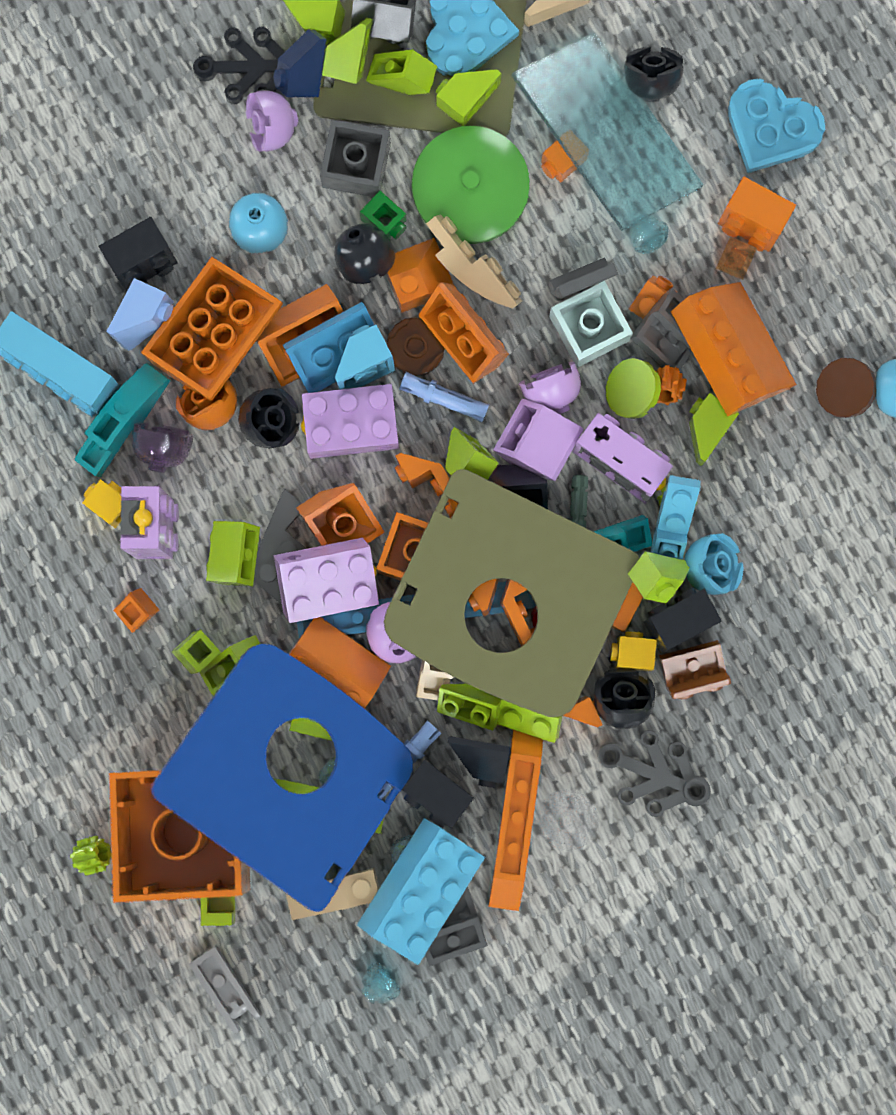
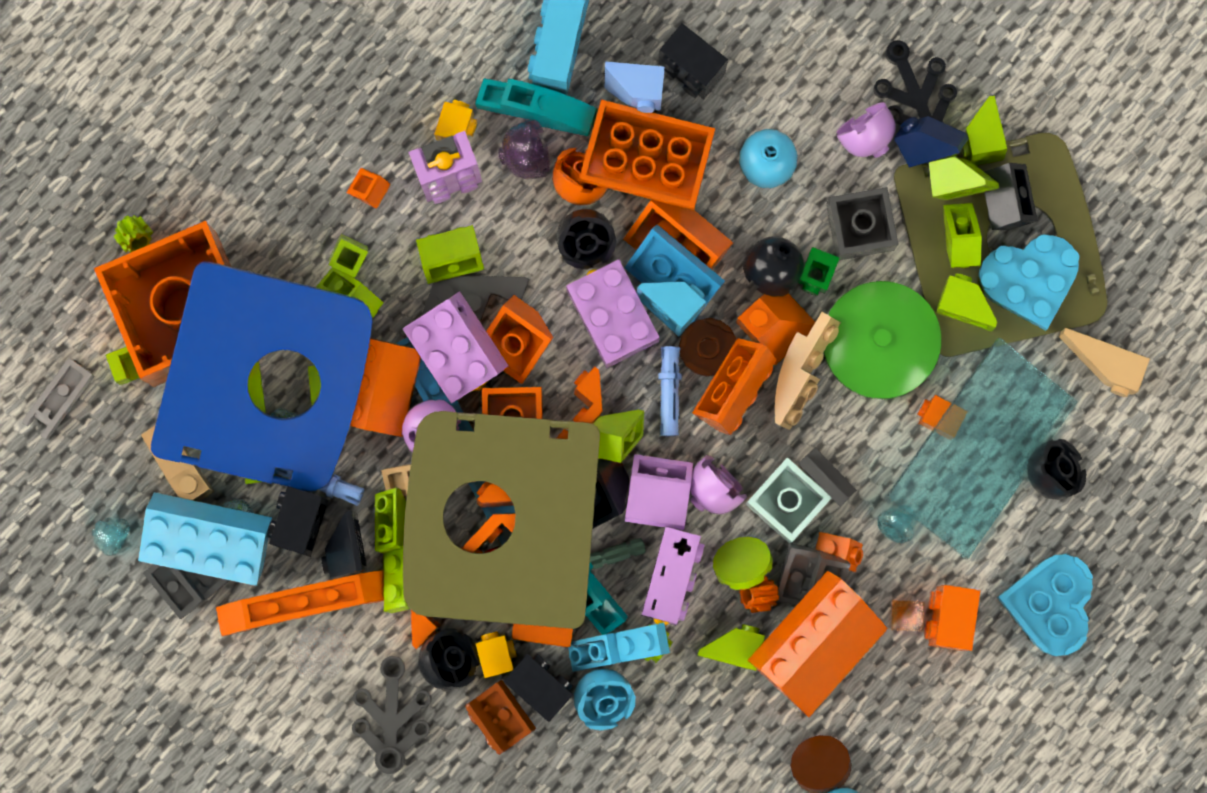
camera: 70 degrees right, 0 degrees up
(658, 576) = (569, 648): lime slope -> none

